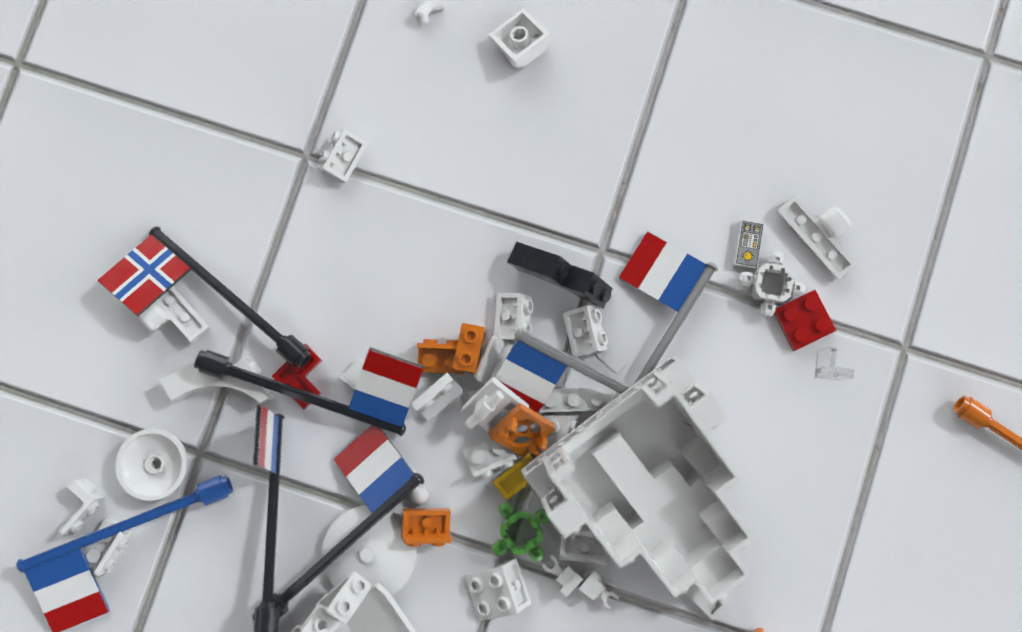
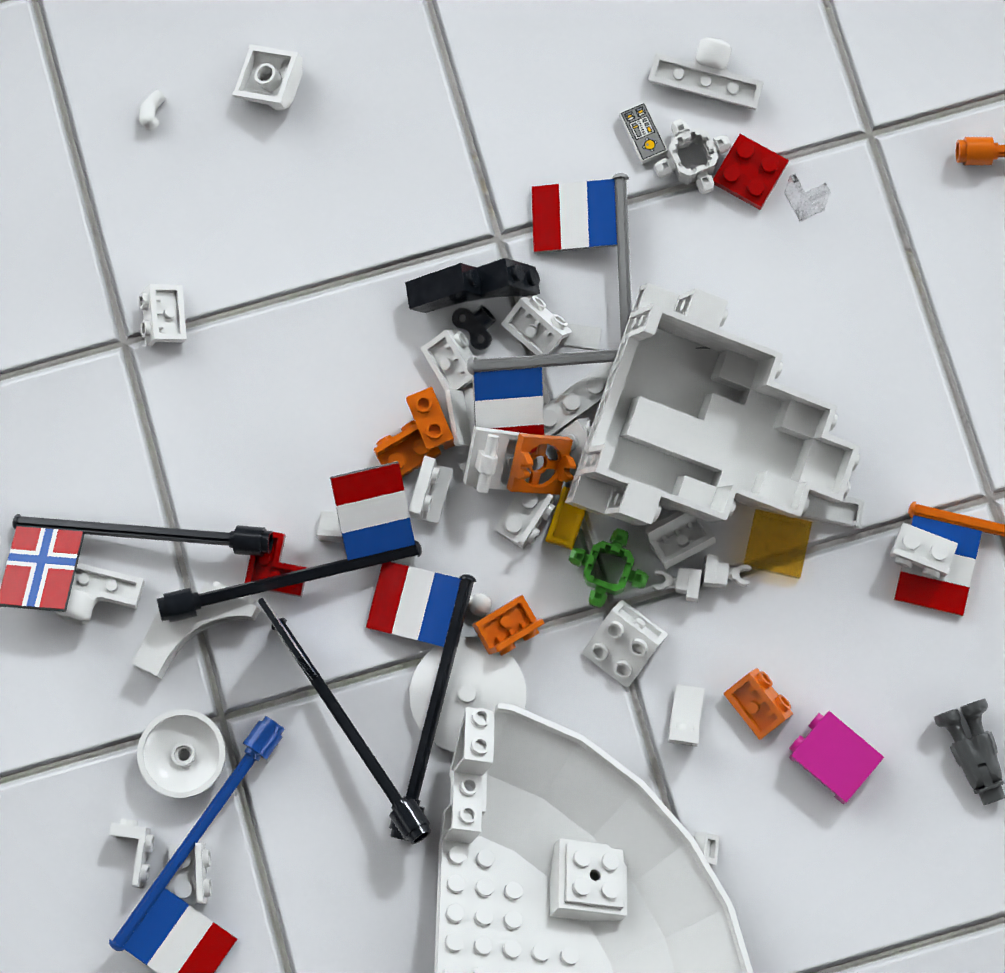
camera: 30 degrees left, 5 degrees down
(545, 301) = (476, 324): none -> black piece
(645, 594) = (777, 543): none -> clear yellow tile

